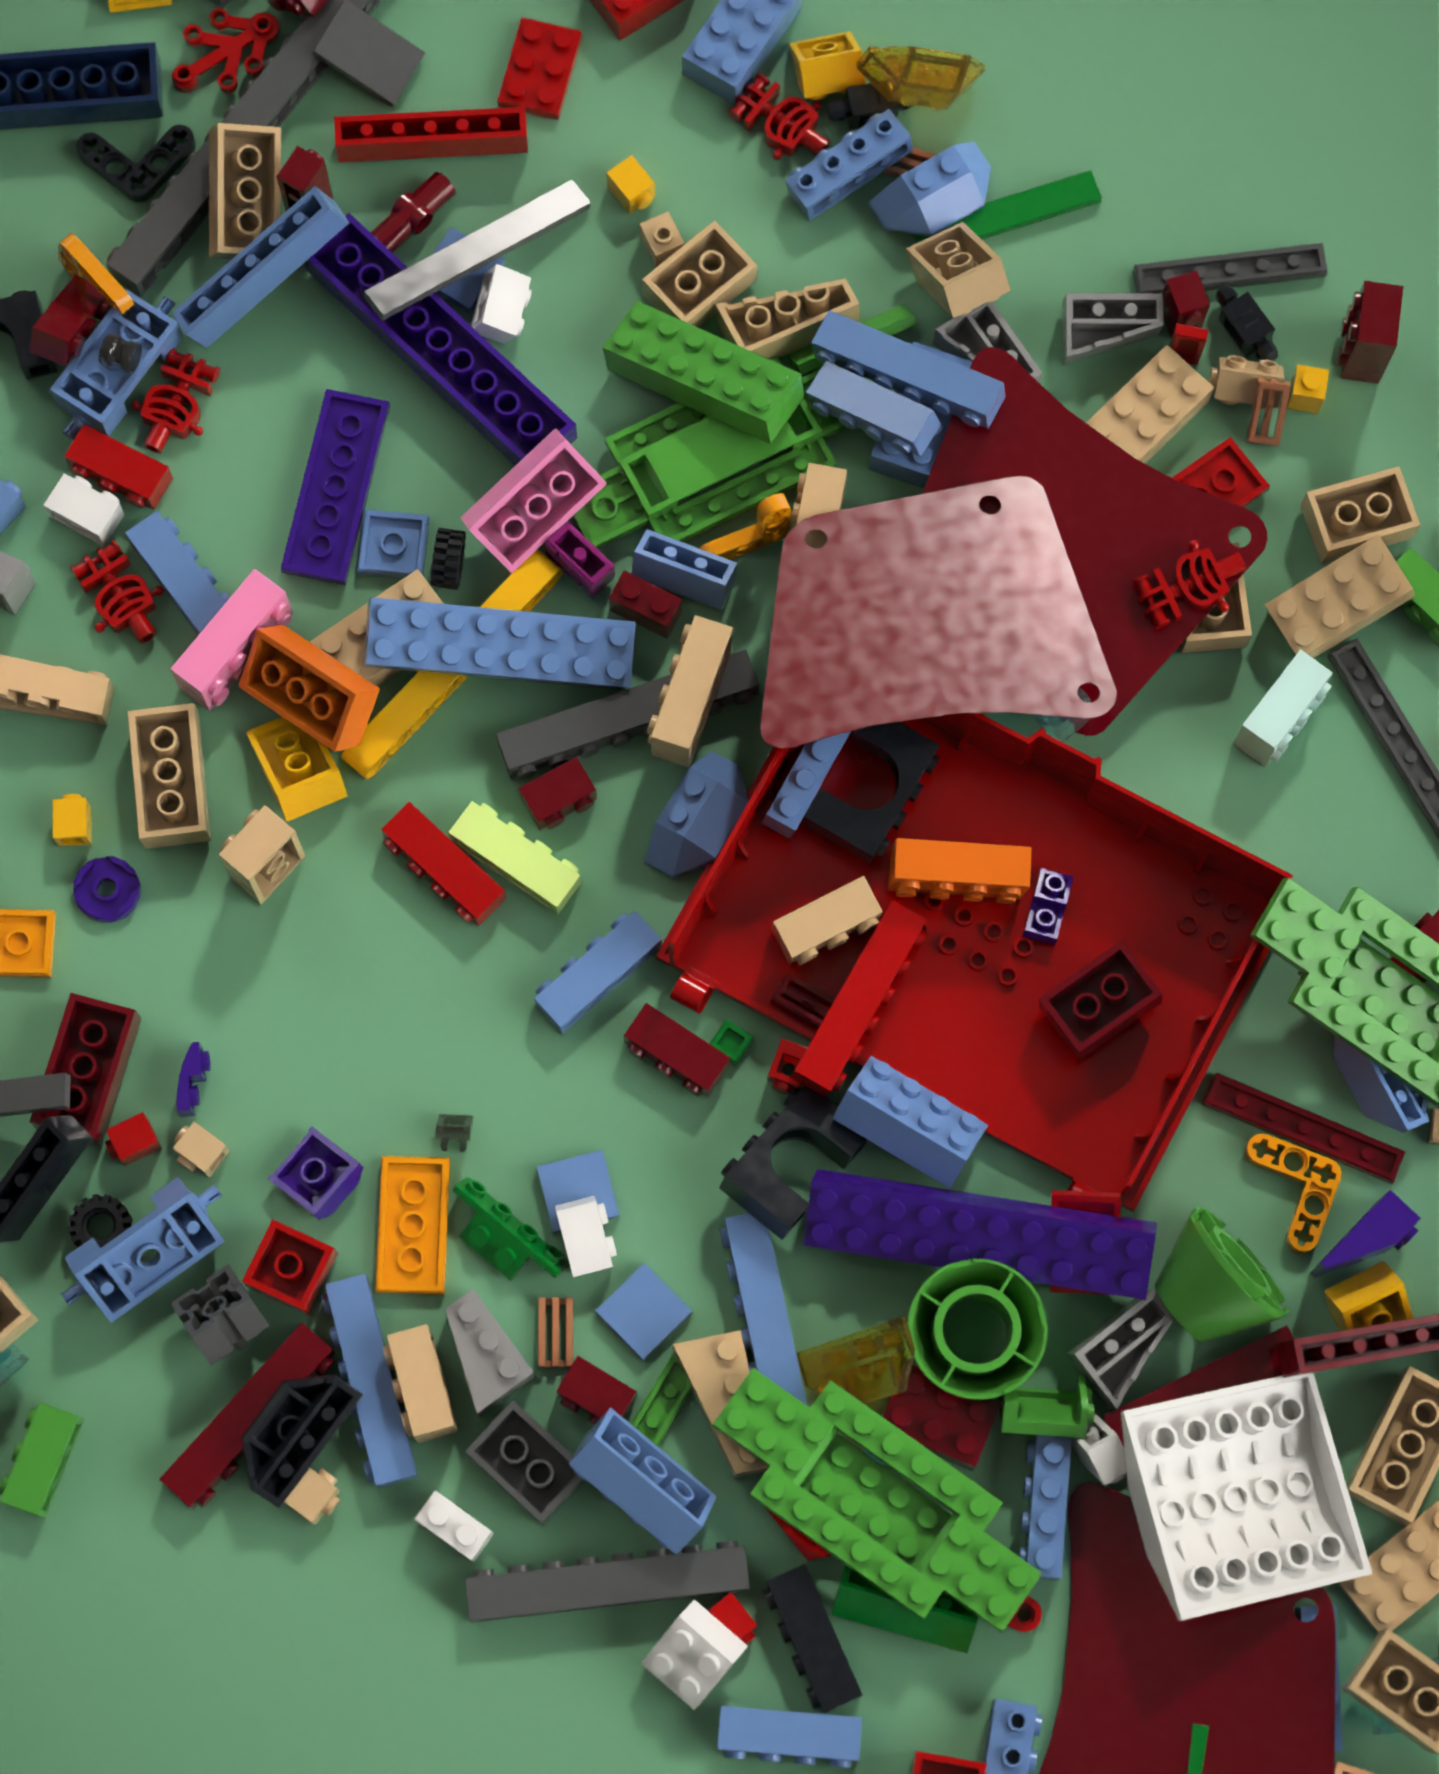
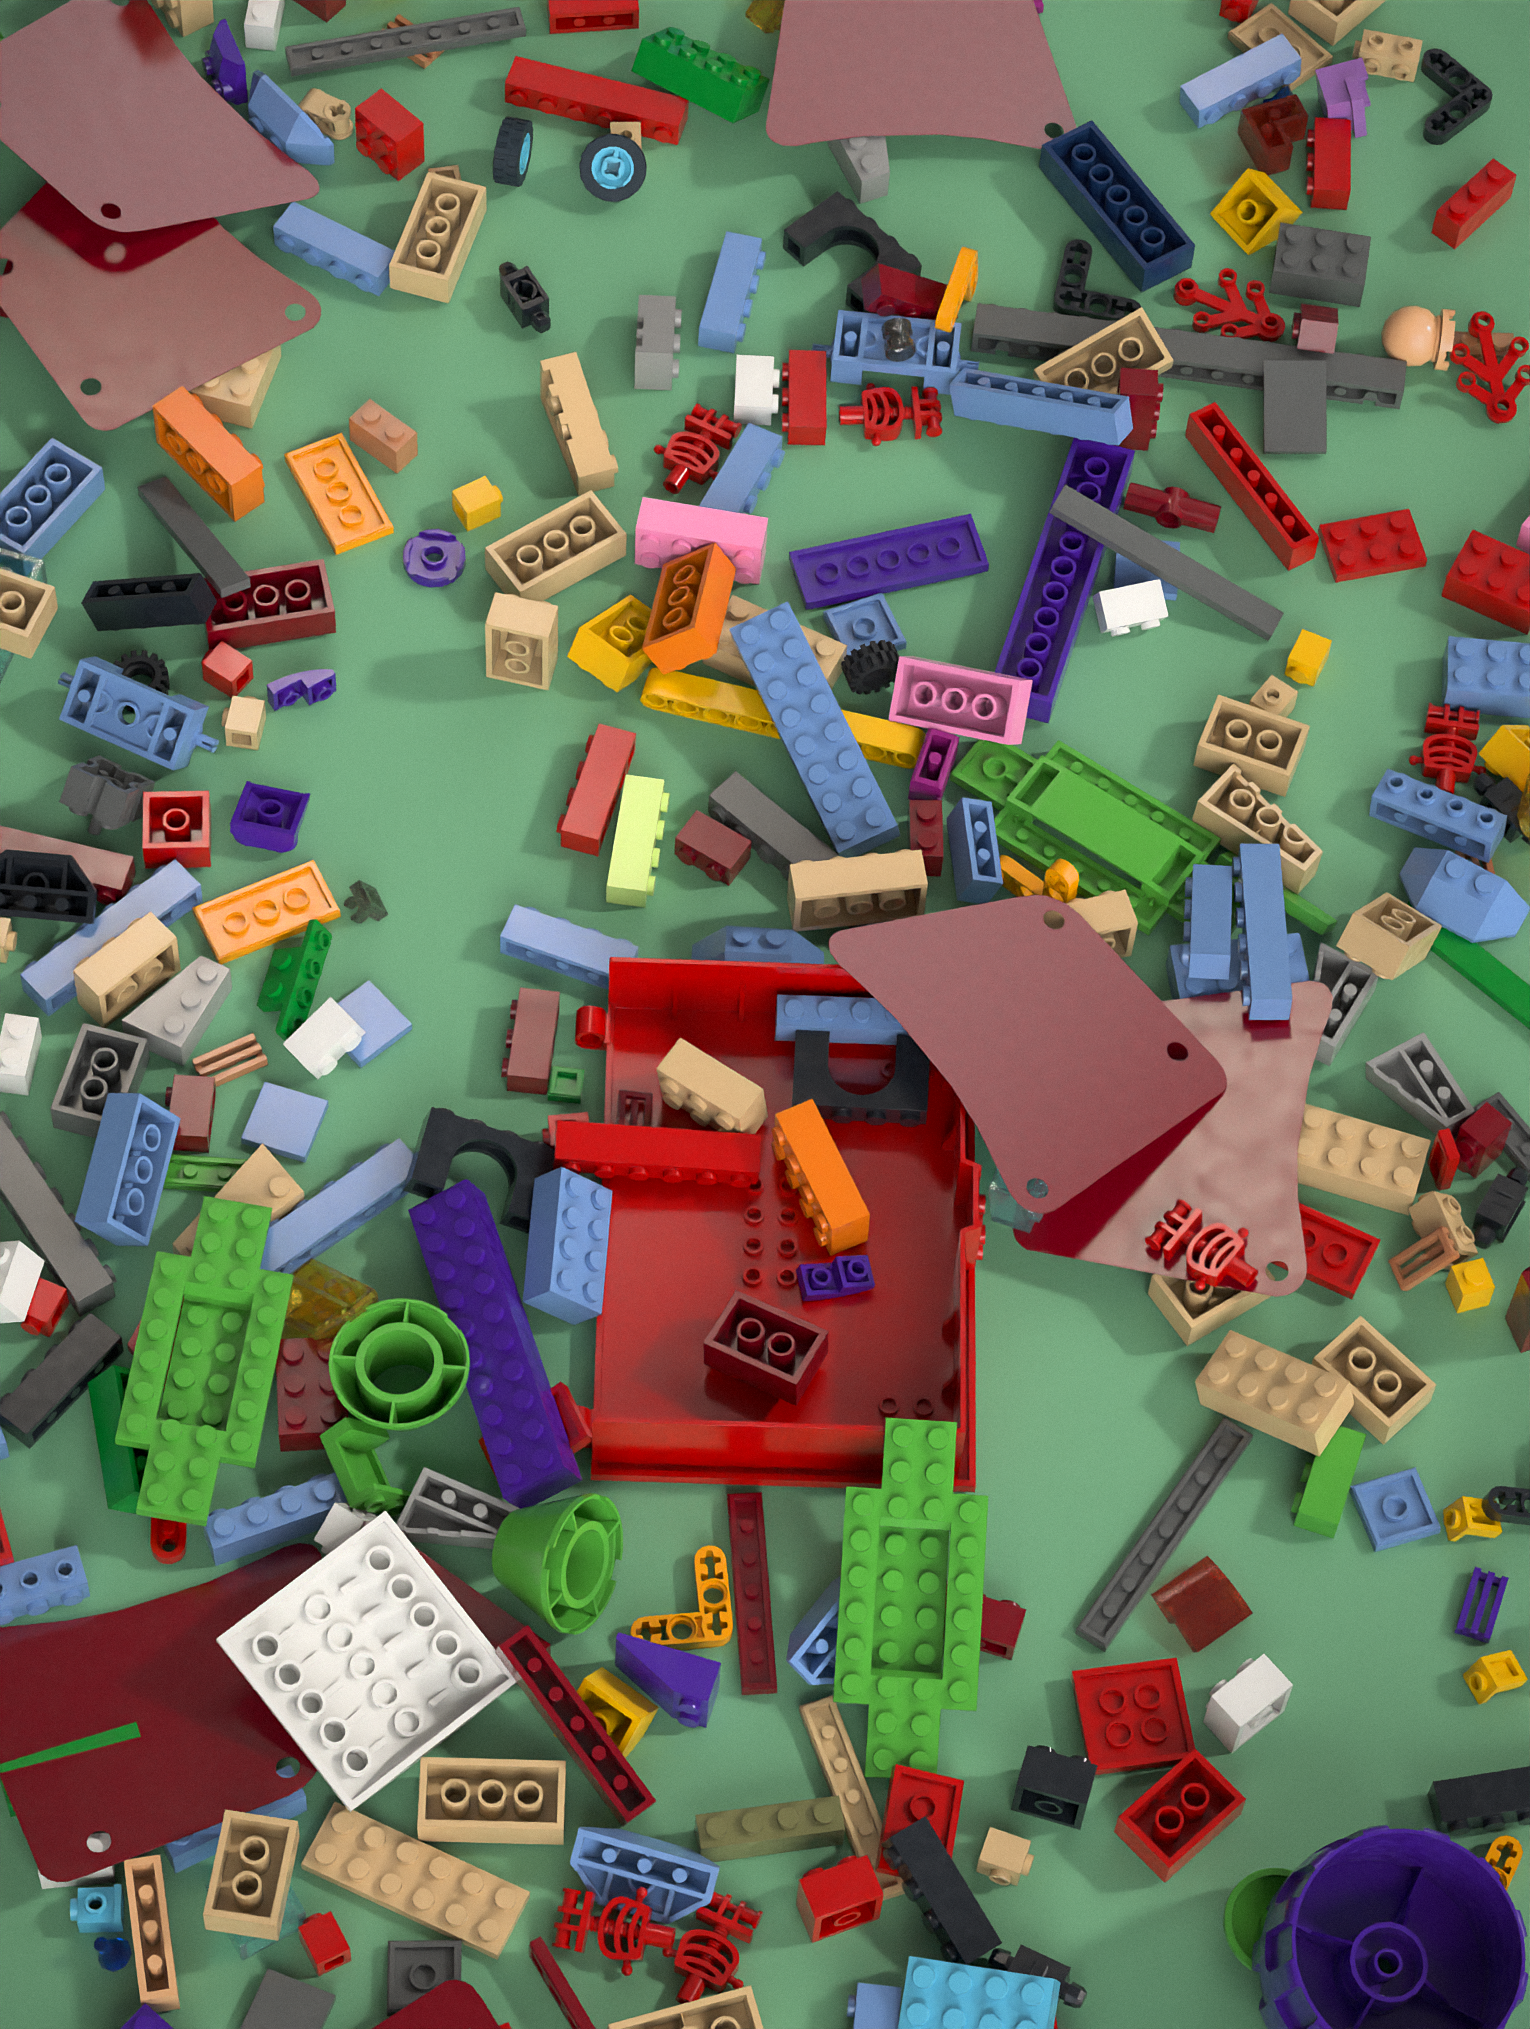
camera: 60 degrees right, 15 degrees down
(703, 372) = (1162, 779): bright green brick -> none
(1284, 709) = (1140, 1390): light aqua brick -> none

